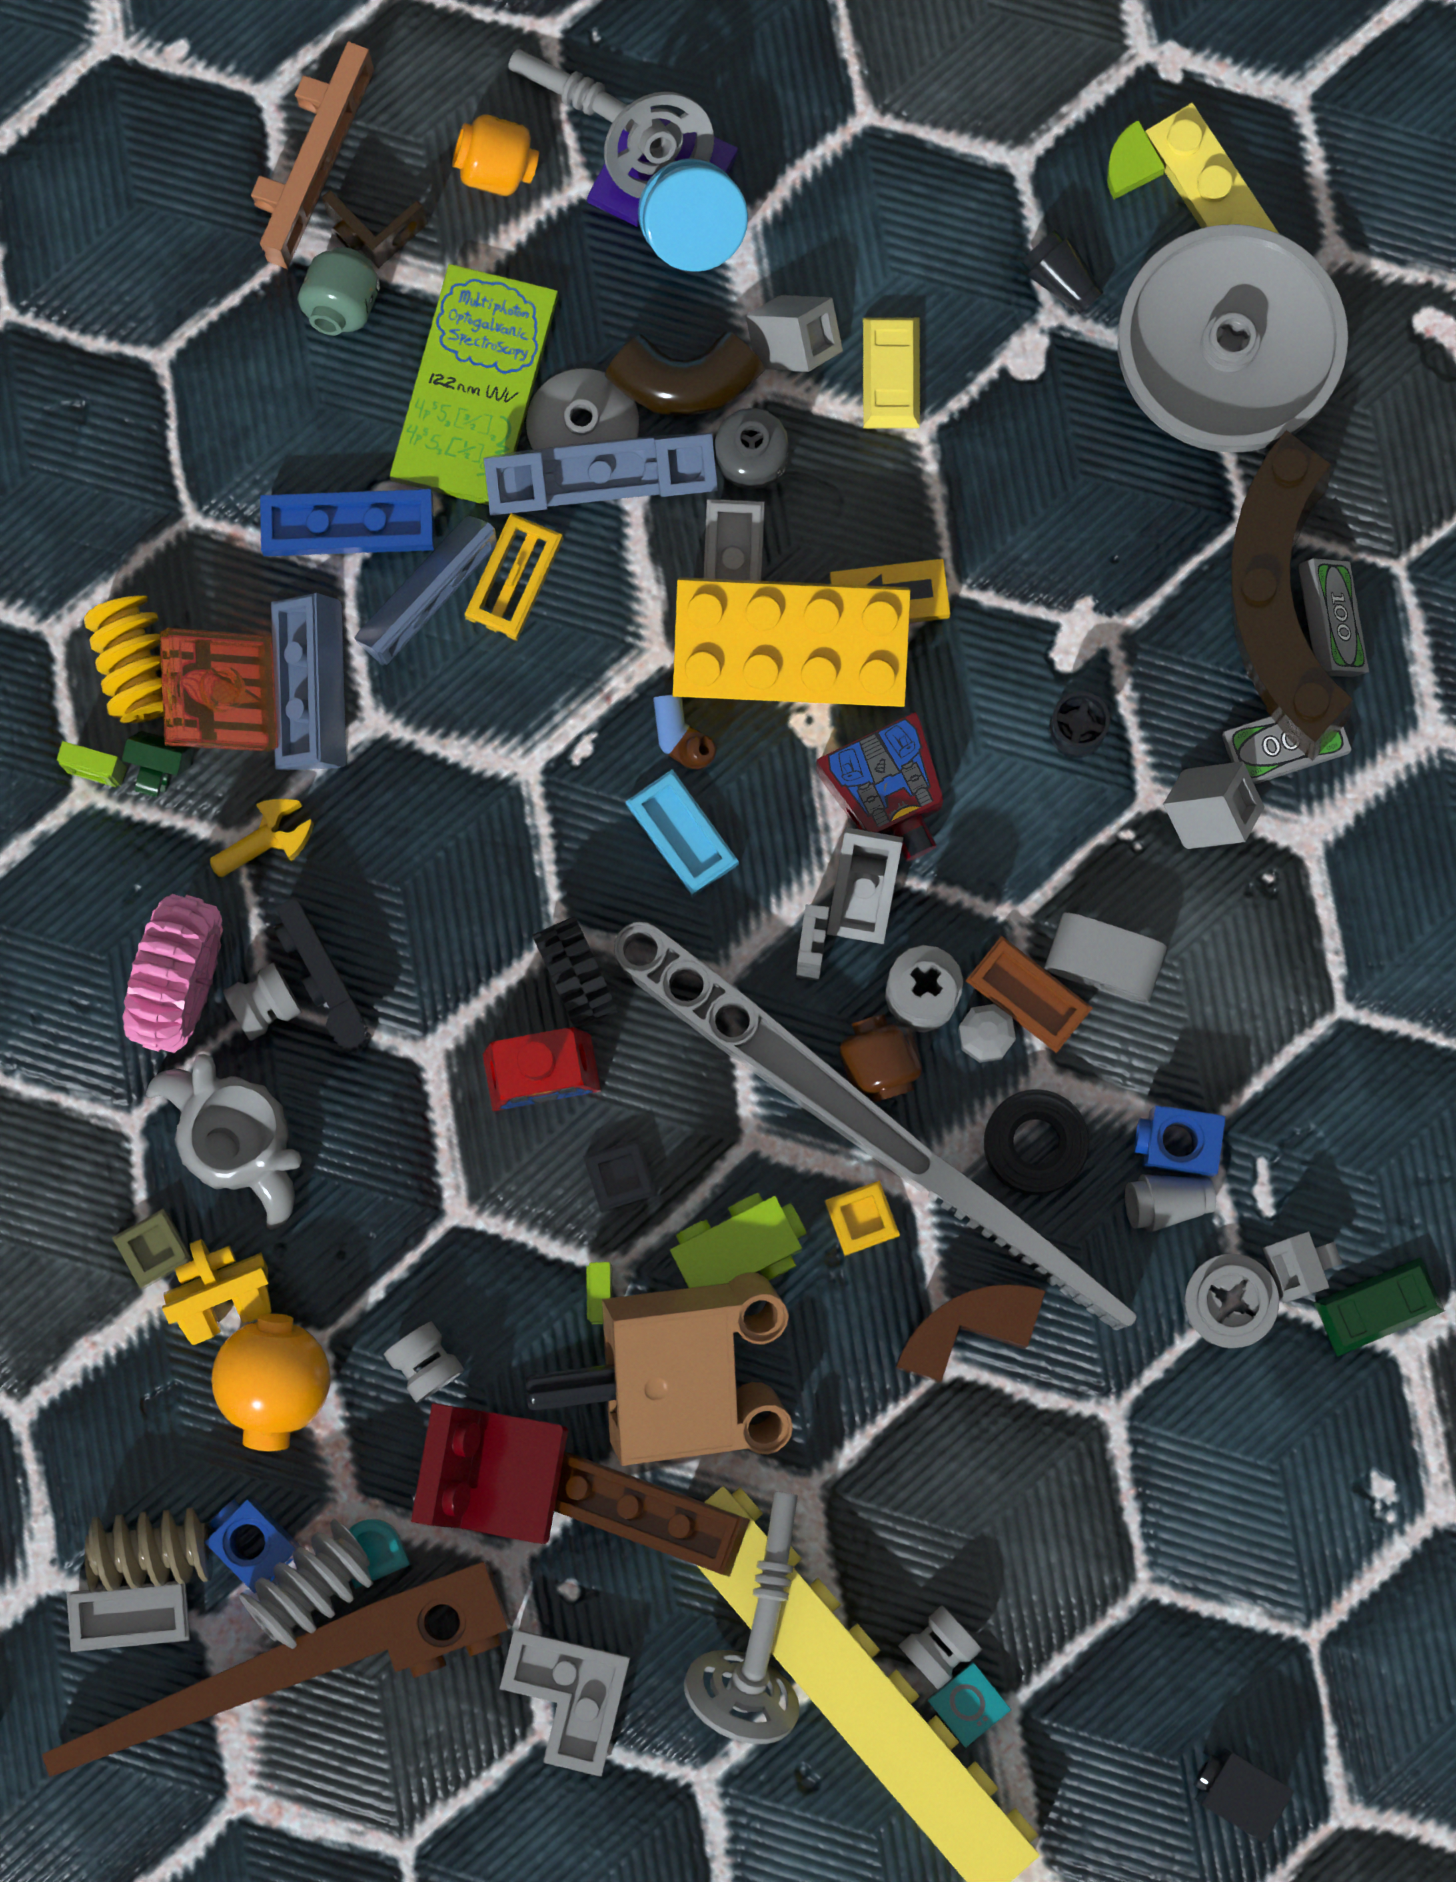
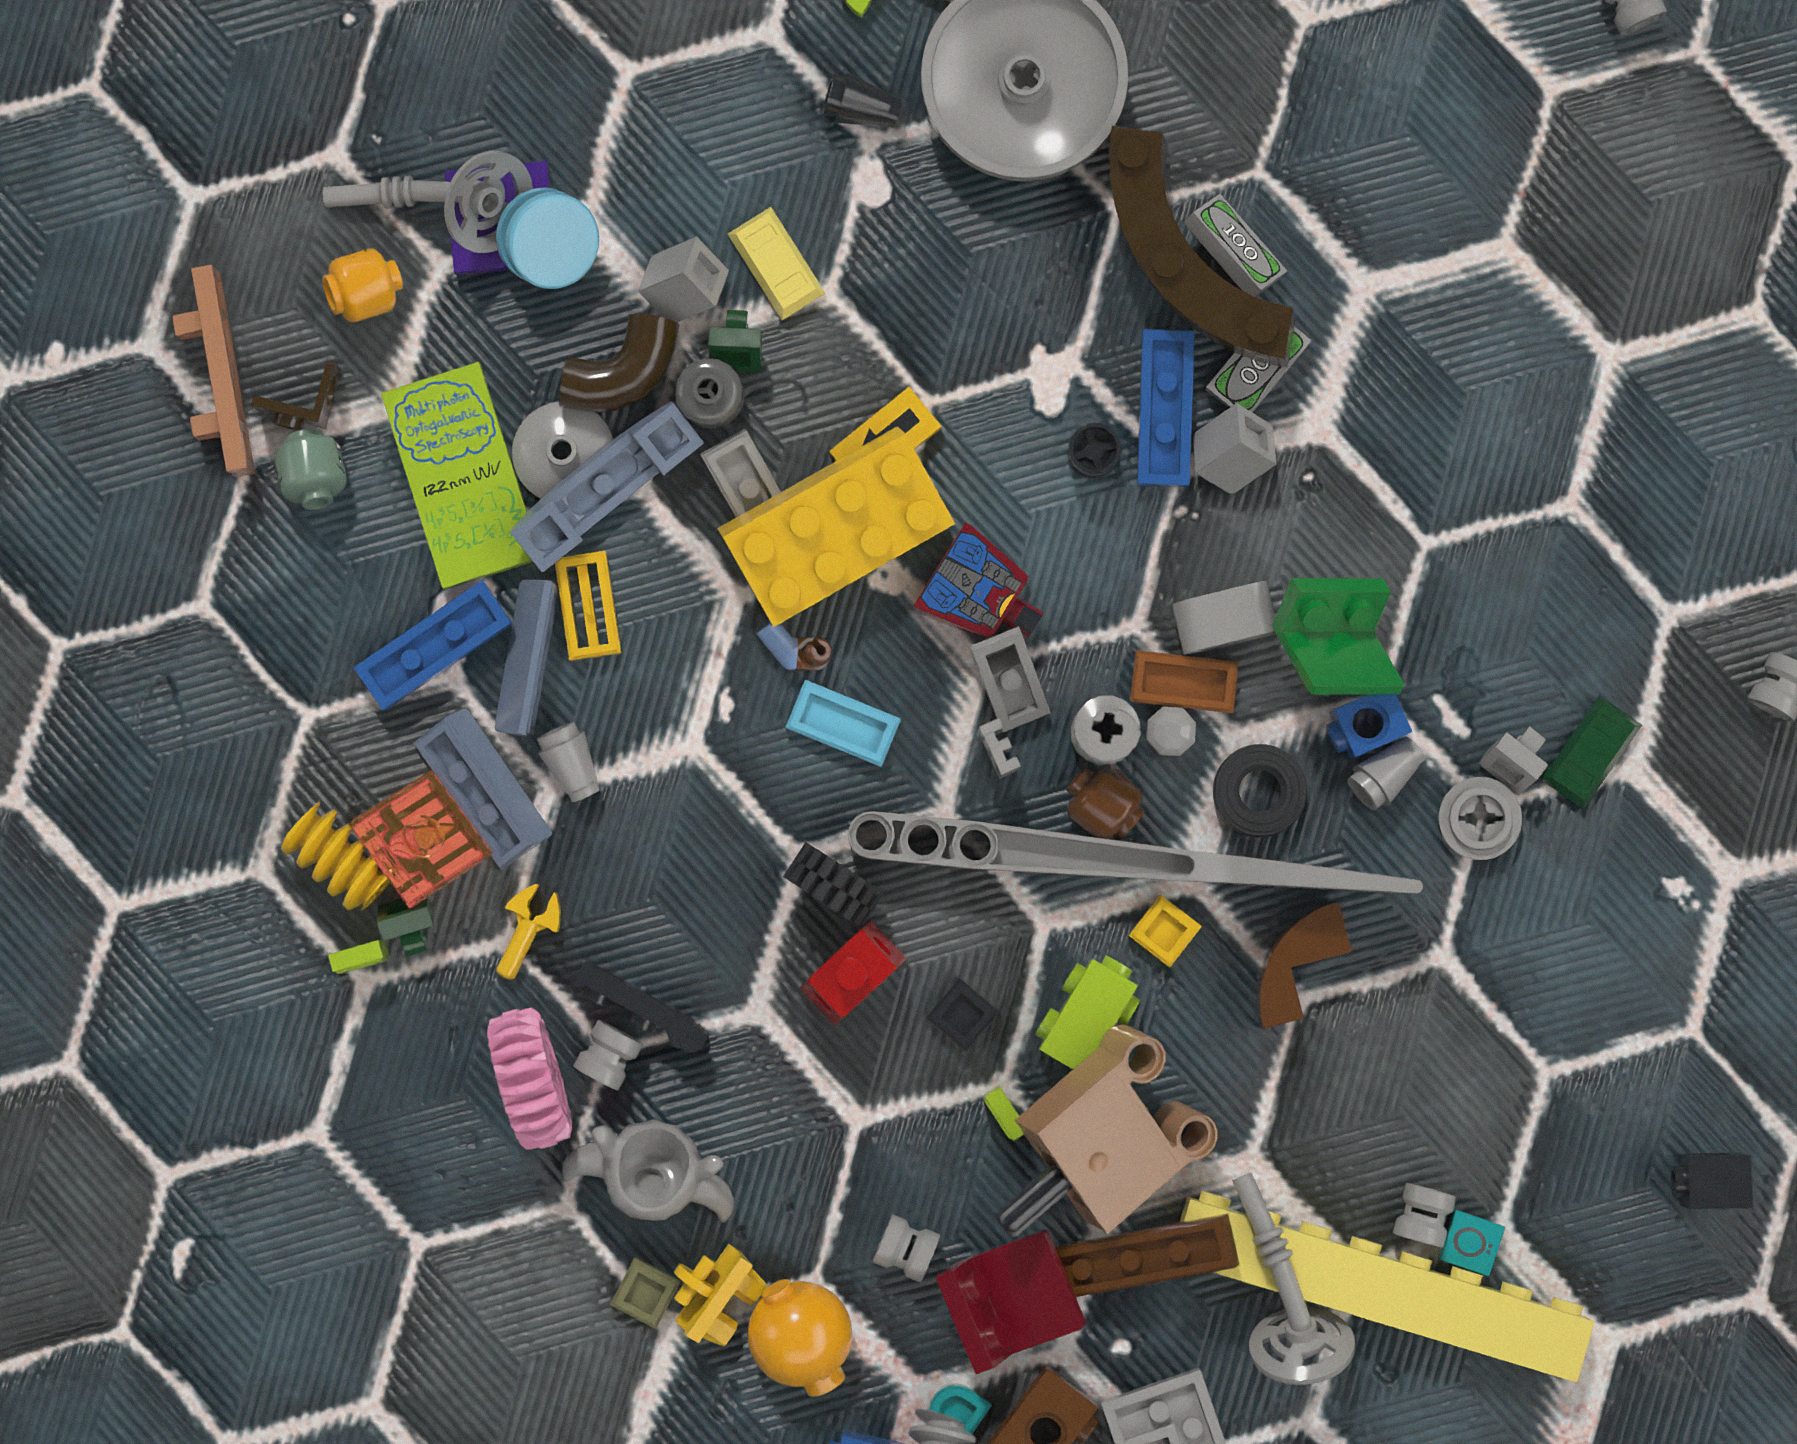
camera: 30 degrees left, 5 degrees up
(404, 706) = (569, 760): none -> light grey cone
(807, 419) = (736, 343): none -> dark green tile
(1172, 727) = (1165, 408): none -> blue plate
(1198, 1032) = (1331, 635): none -> green bracket

